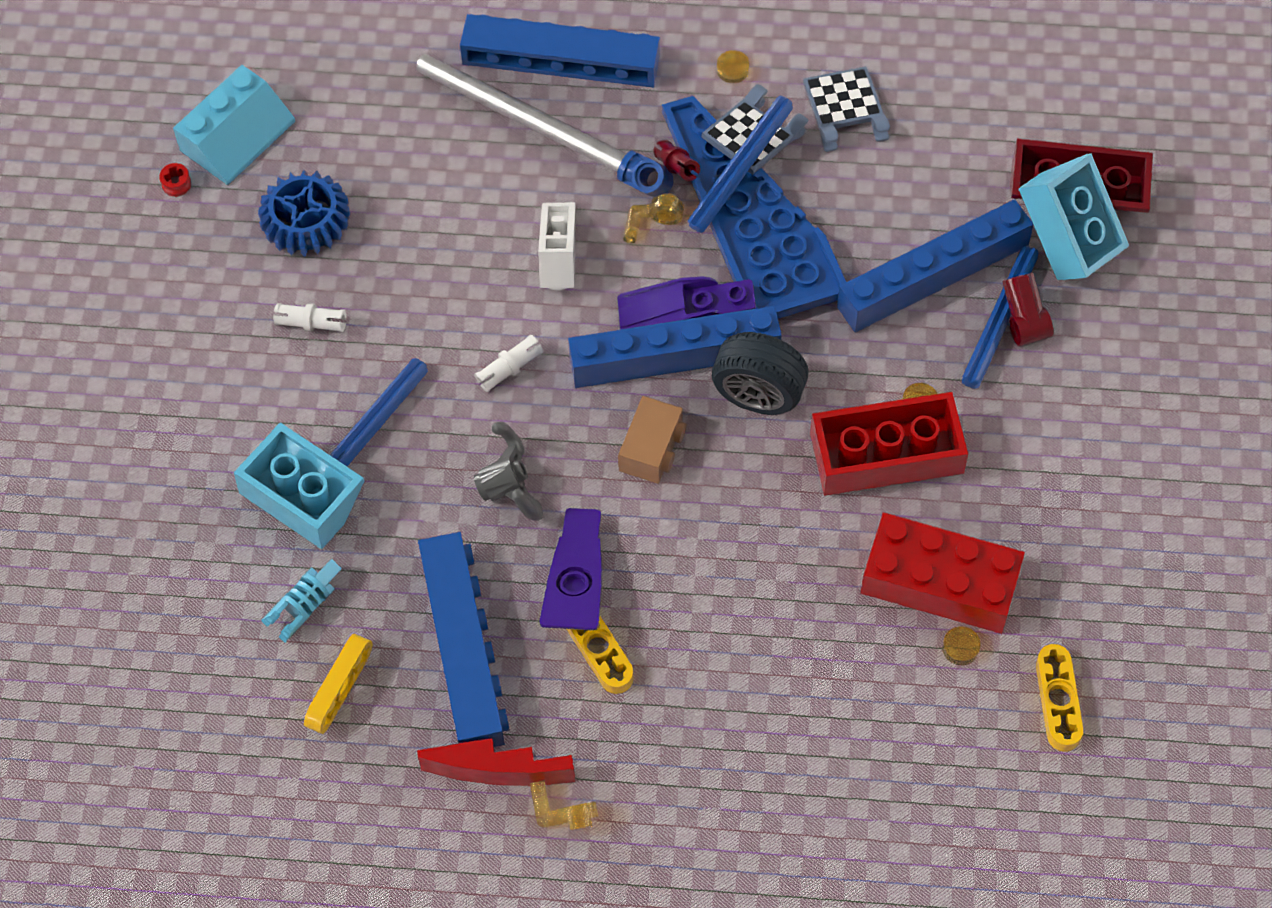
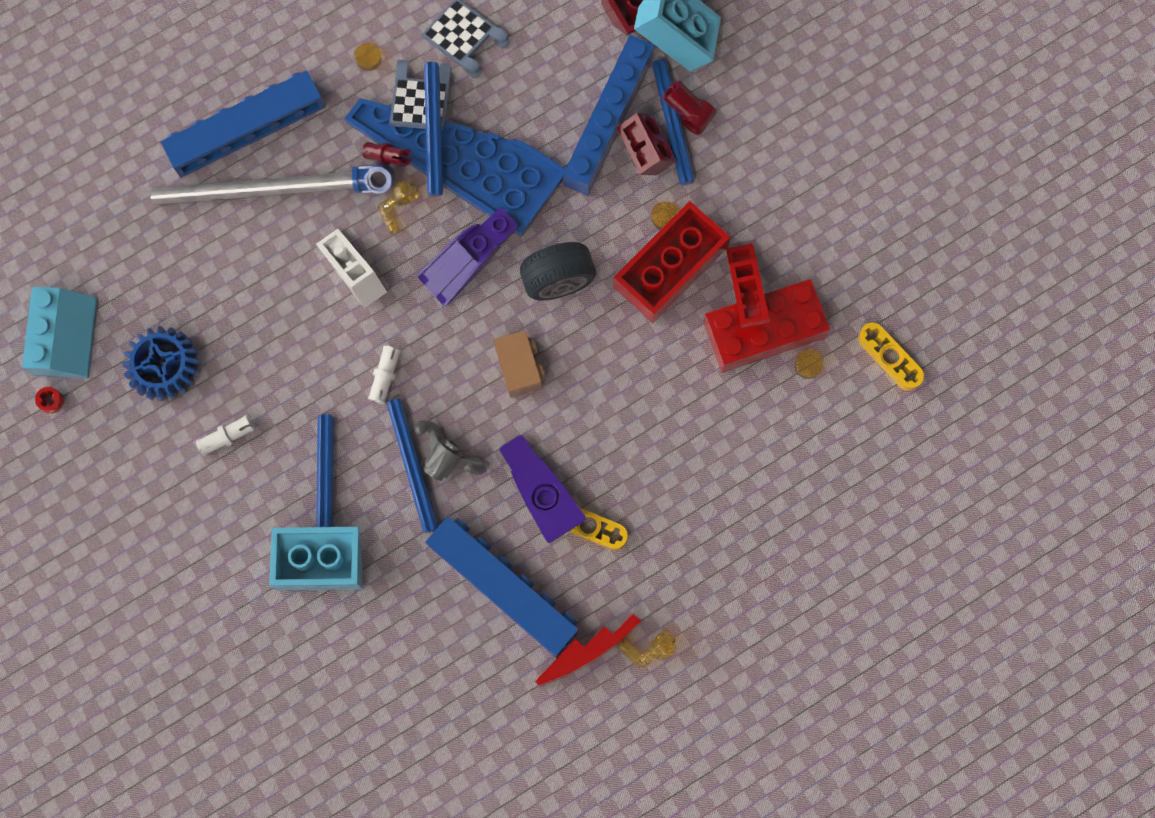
camera: 35 degrees left, 15 degrees up
(304, 598) = (378, 631): medium azure hinge -> none
(338, 683) = (446, 671): yellow beam -> none
(467, 465) = (412, 466): none -> blue axle
(662, 346) = (482, 290): blue brick -> none
(949, 512) = (747, 285): none -> red slope
(951, 315) = (646, 144): none -> dark red brick

